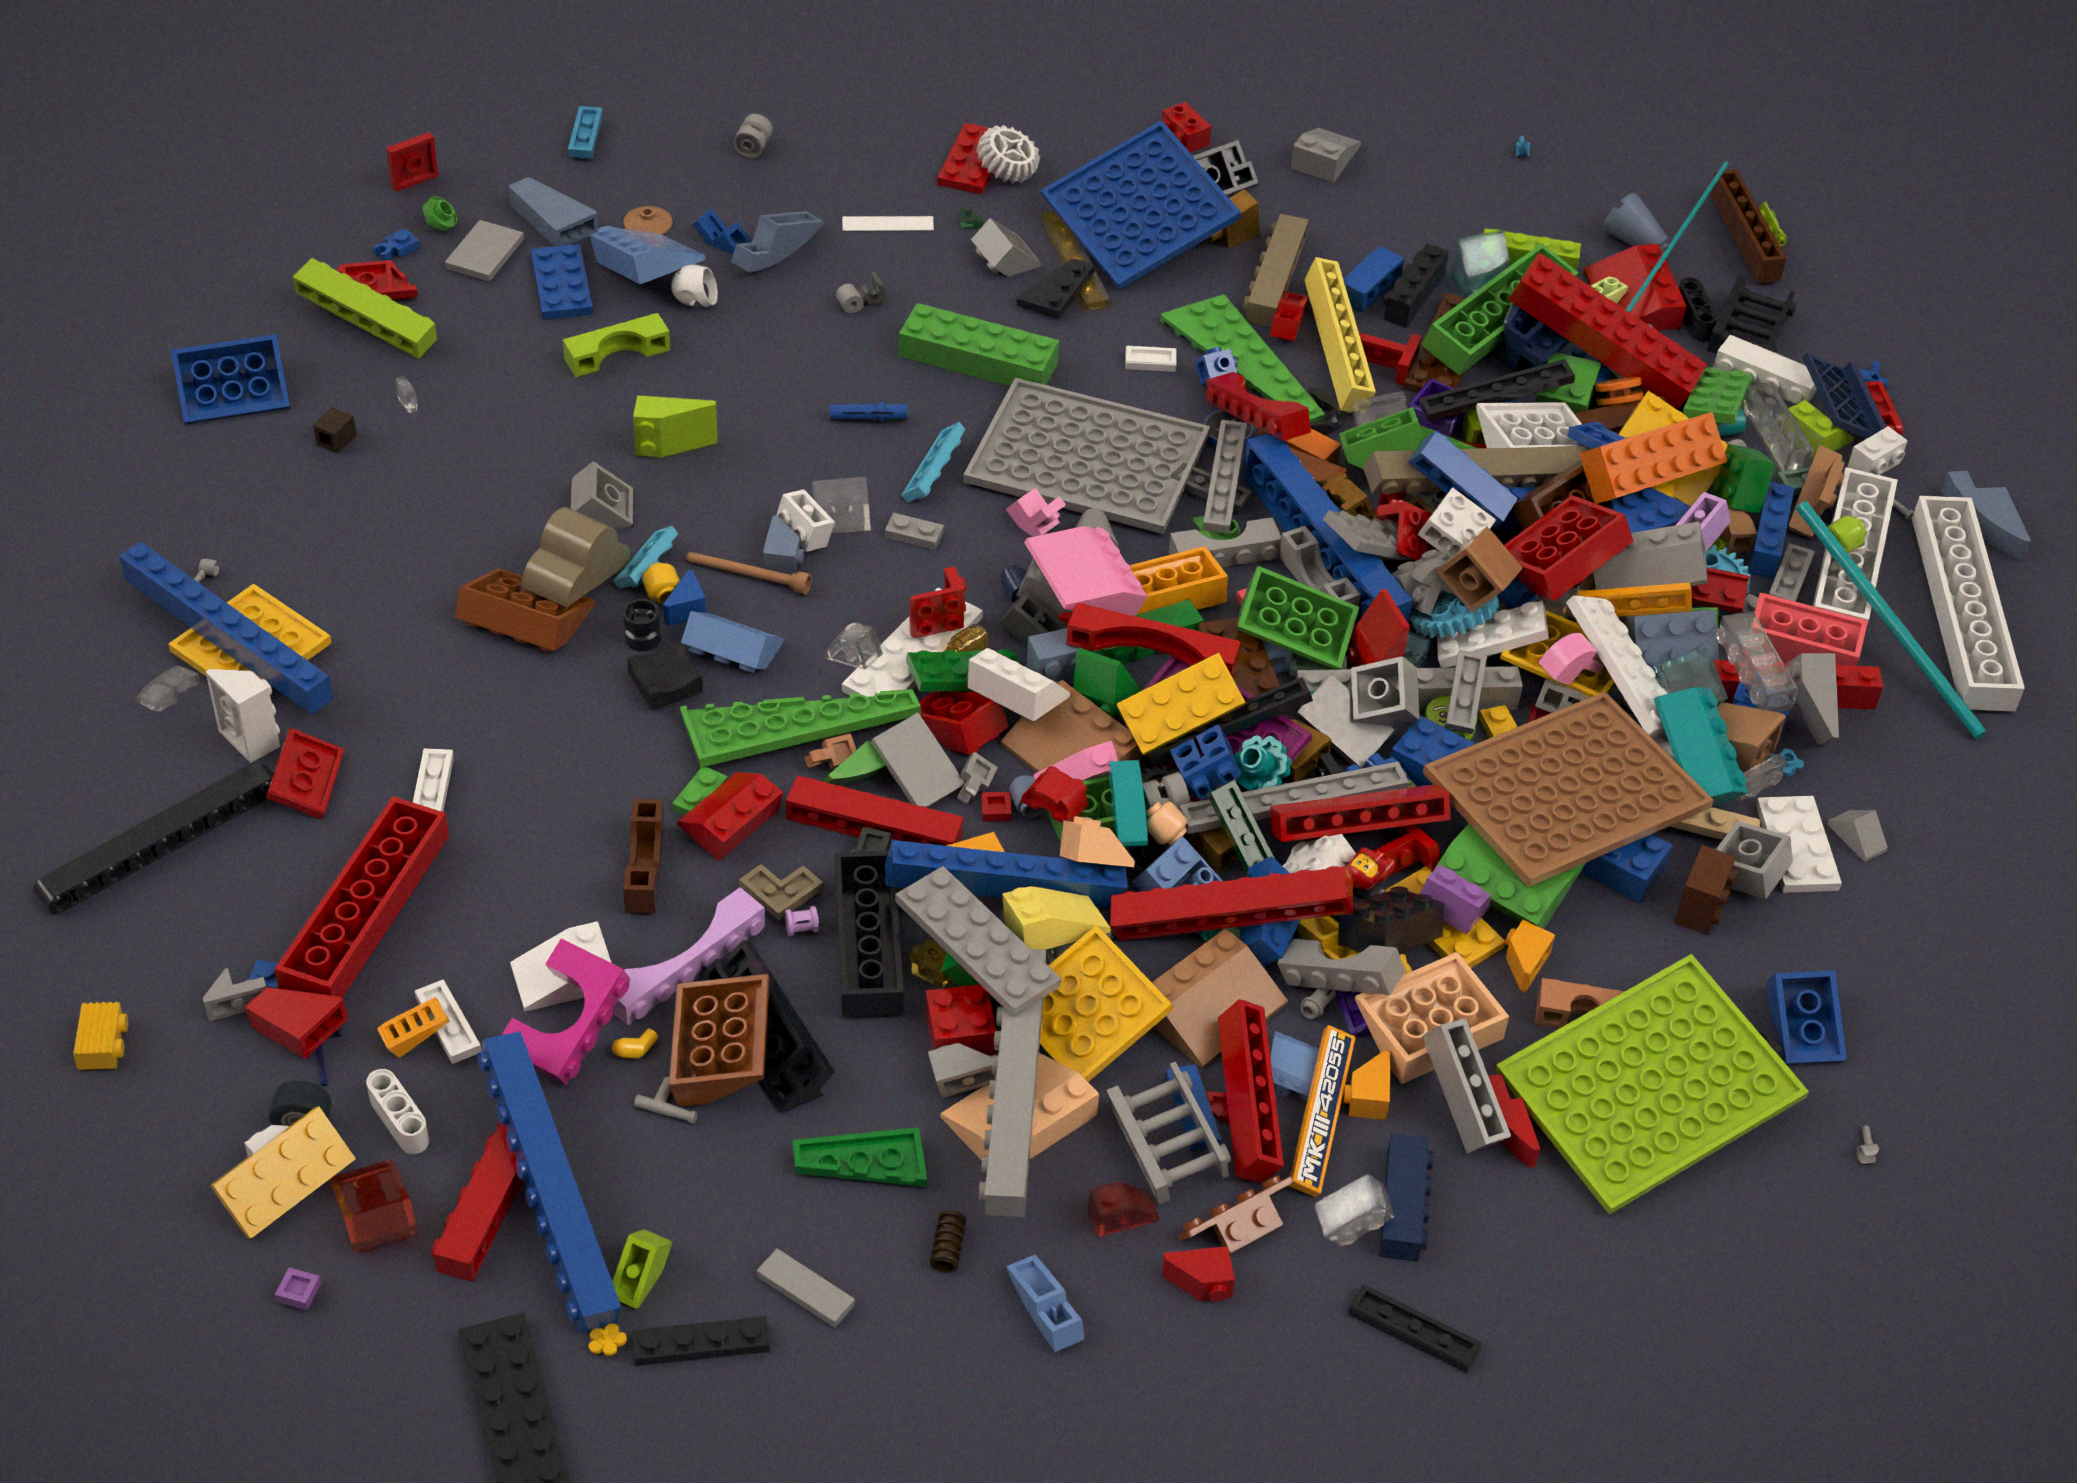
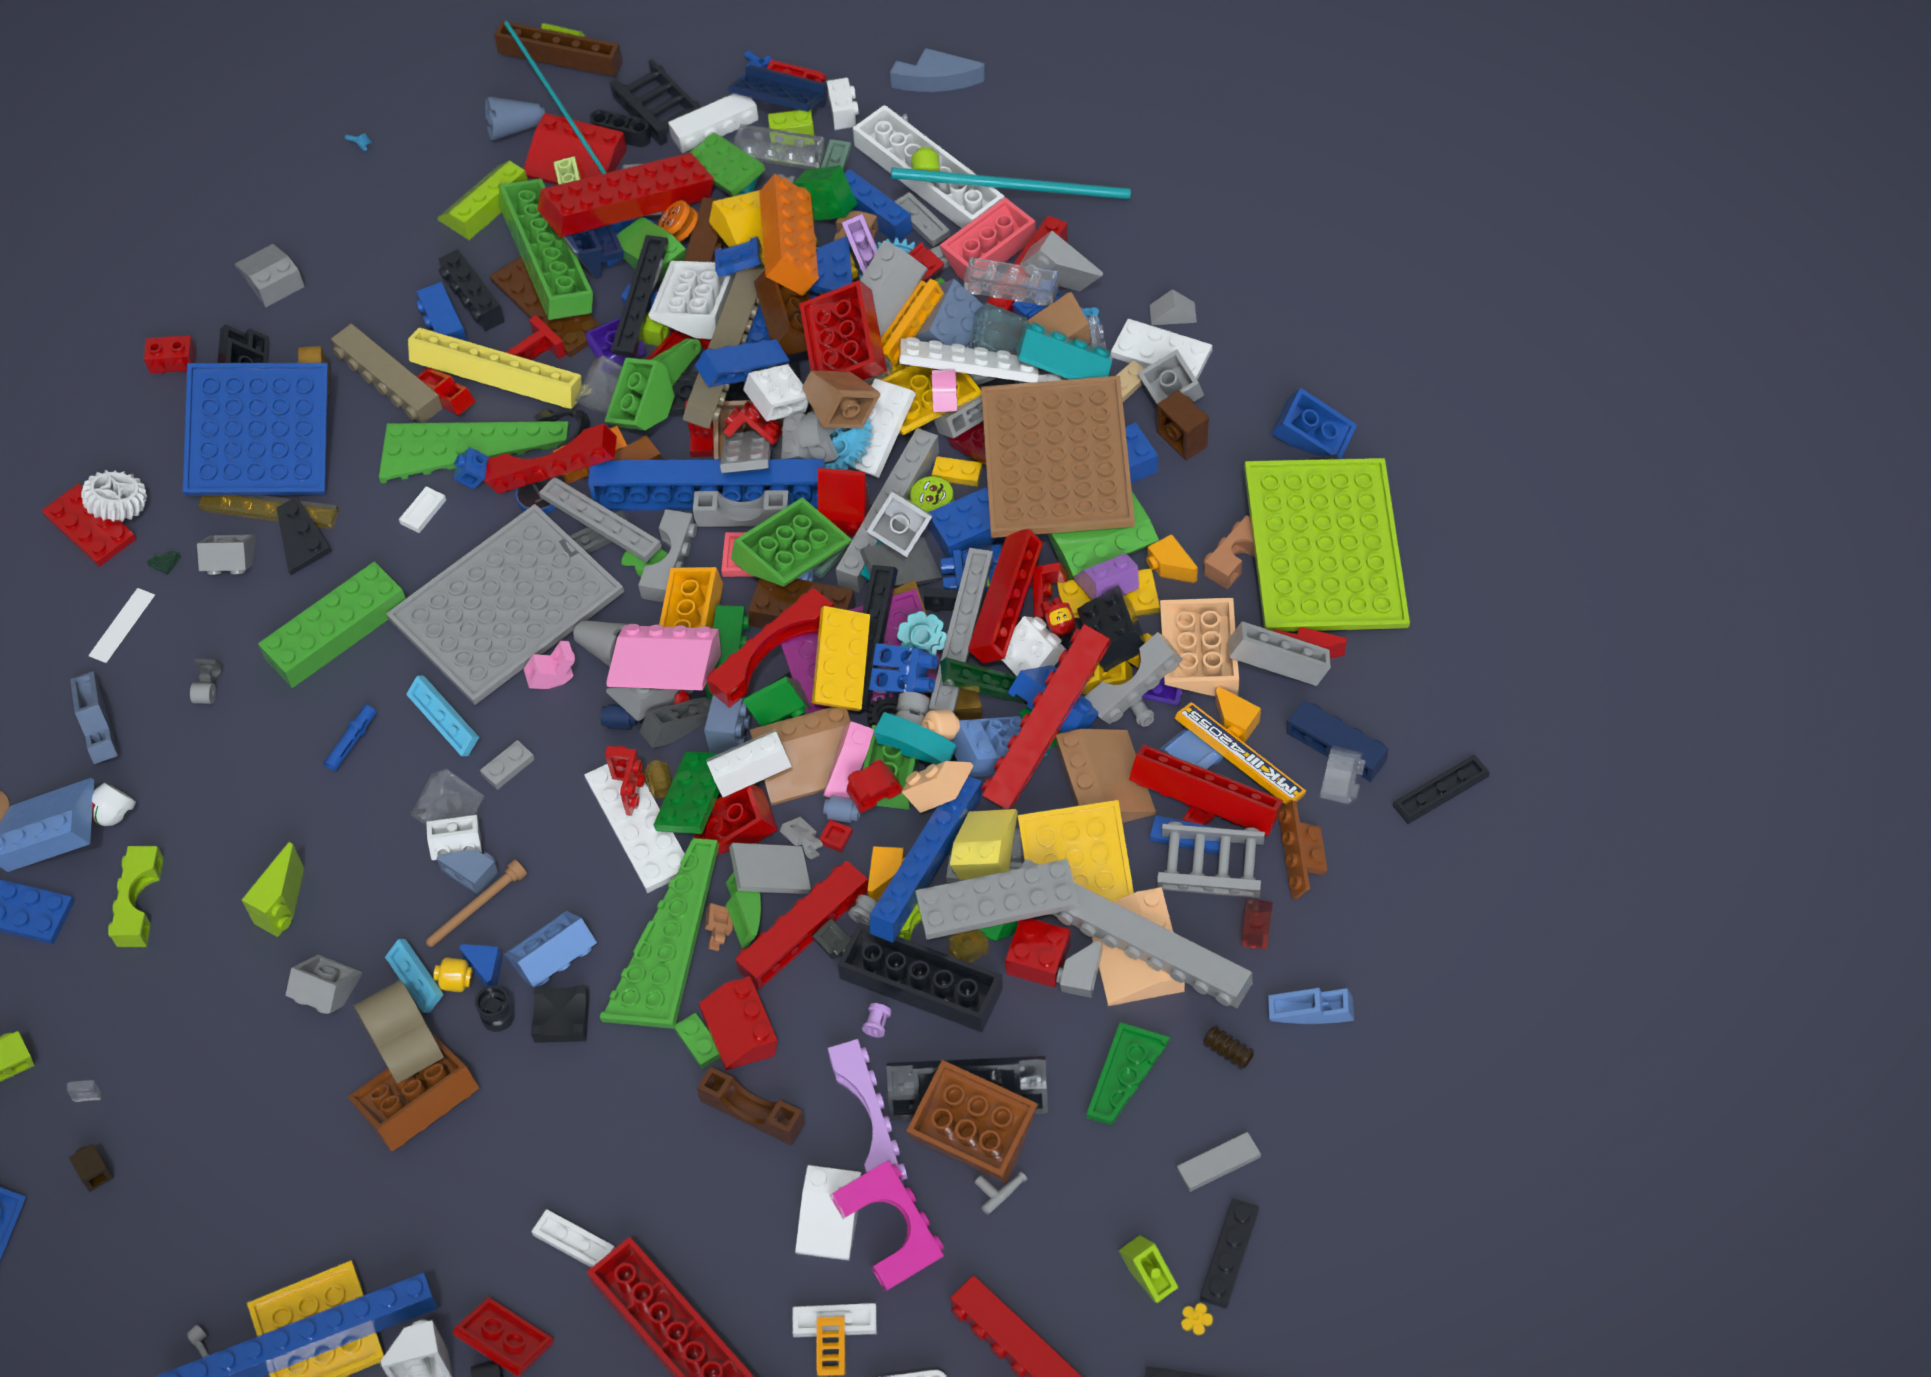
camera: 55 degrees left, 10 degrees up
(549, 1183) = (1046, 1298): blue brick -> none
(635, 1047) = (934, 1191): yellow arm -> none
(716, 233) = (54, 755): blue slope -> none
(779, 894) = (840, 1027): dark tan plate -> none
(855, 646) = (618, 861): clear slope -> none
(1201, 1272) = (1339, 895): red slope -> none
(1347, 496) = (689, 448): pearl gold hips -> none
(1465, 691) = (927, 471): light grey plate -> none
(1479, 261) = (483, 236): clear light blue slope -> none
(1818, 487) = (856, 153): medium nougat bracket -> none
(1867, 1152) = (1435, 452): light grey hand -> none
(1967, 604) = (1013, 131): white brick -> none

